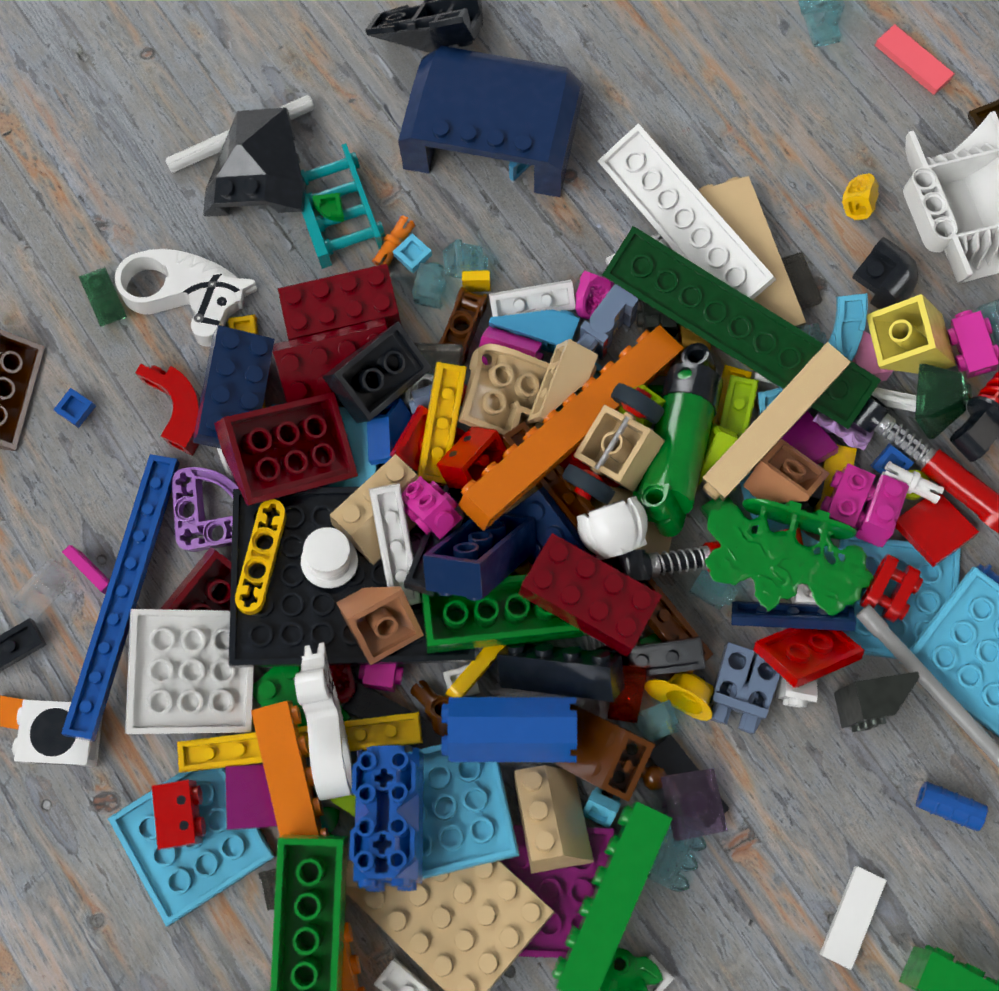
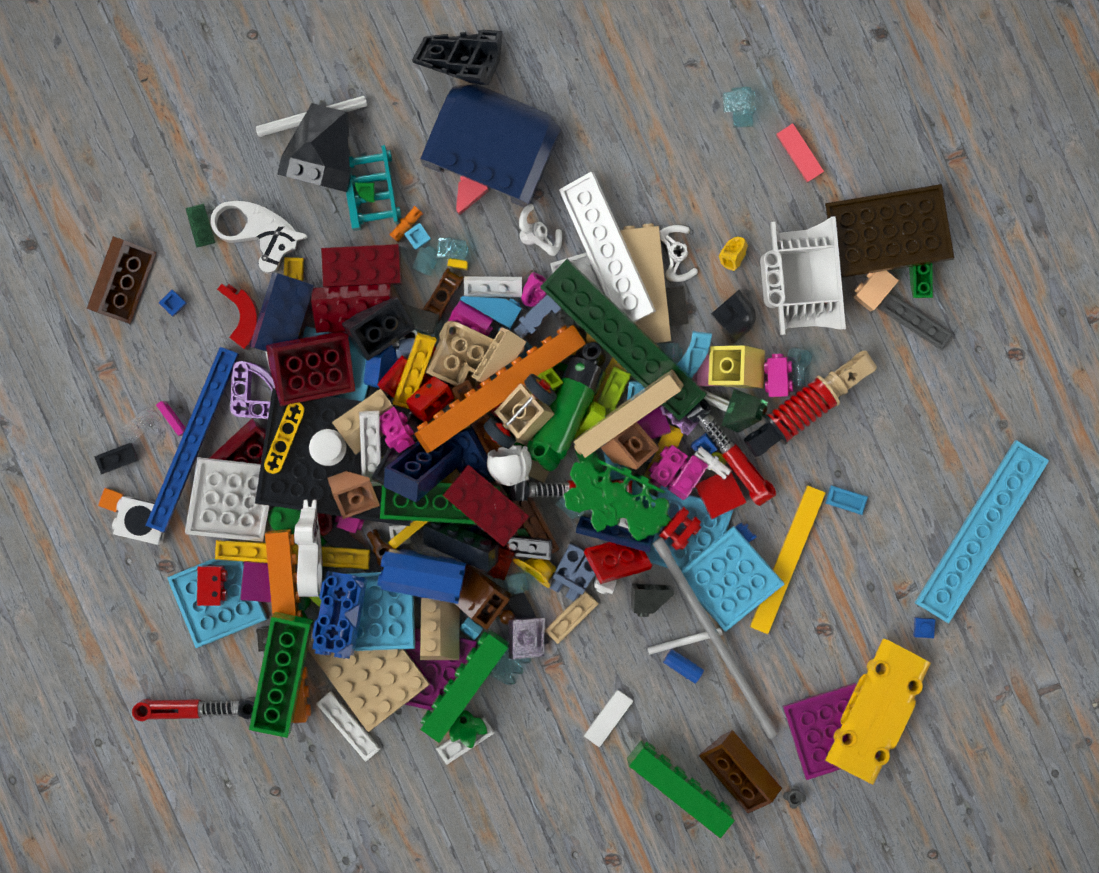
camera: 10 degrees right, 15 degrees up
(476, 183) = (468, 194): none -> coral slope
(579, 216) = (537, 233): none -> white piece
(754, 762) = (571, 617): none -> tan tile
(781, 211) = (670, 273): none -> white piece
(934, 770) = (680, 642): none -> white bar

